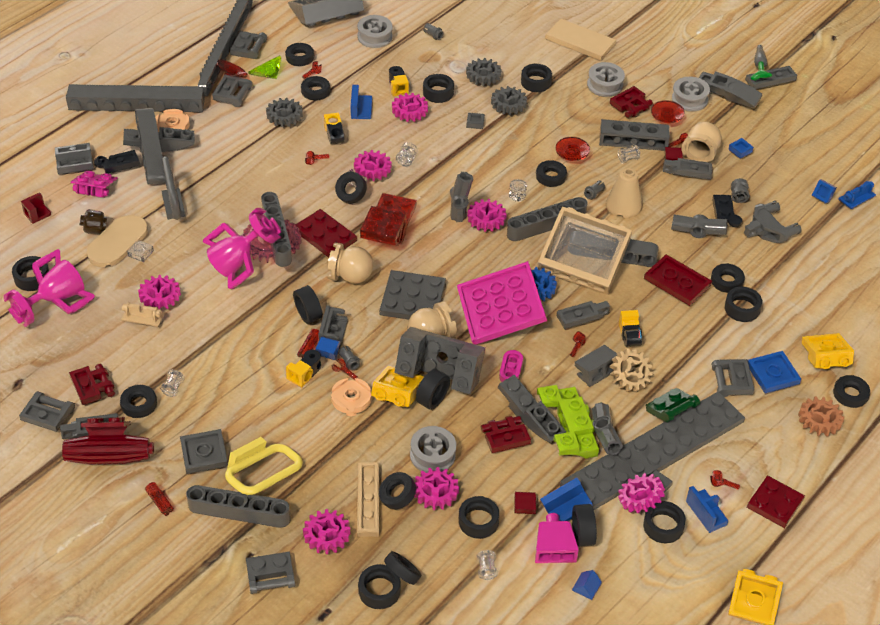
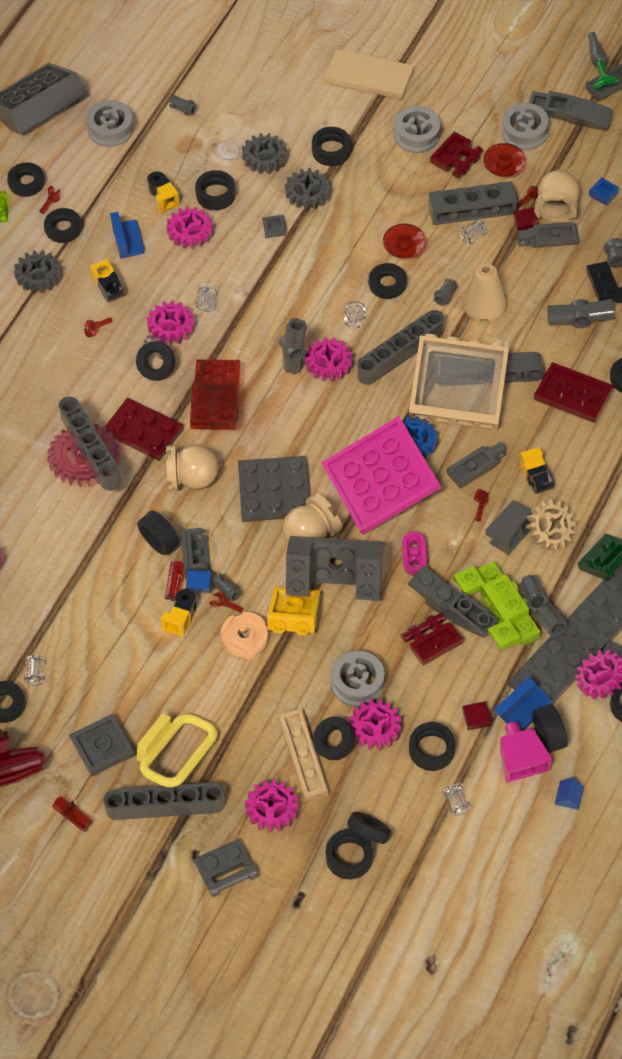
camera: 10 degrees left, 10 degrees up
(232, 252) = (48, 486): dark pink piece -> none
(432, 389) = (336, 605): black tyre -> none

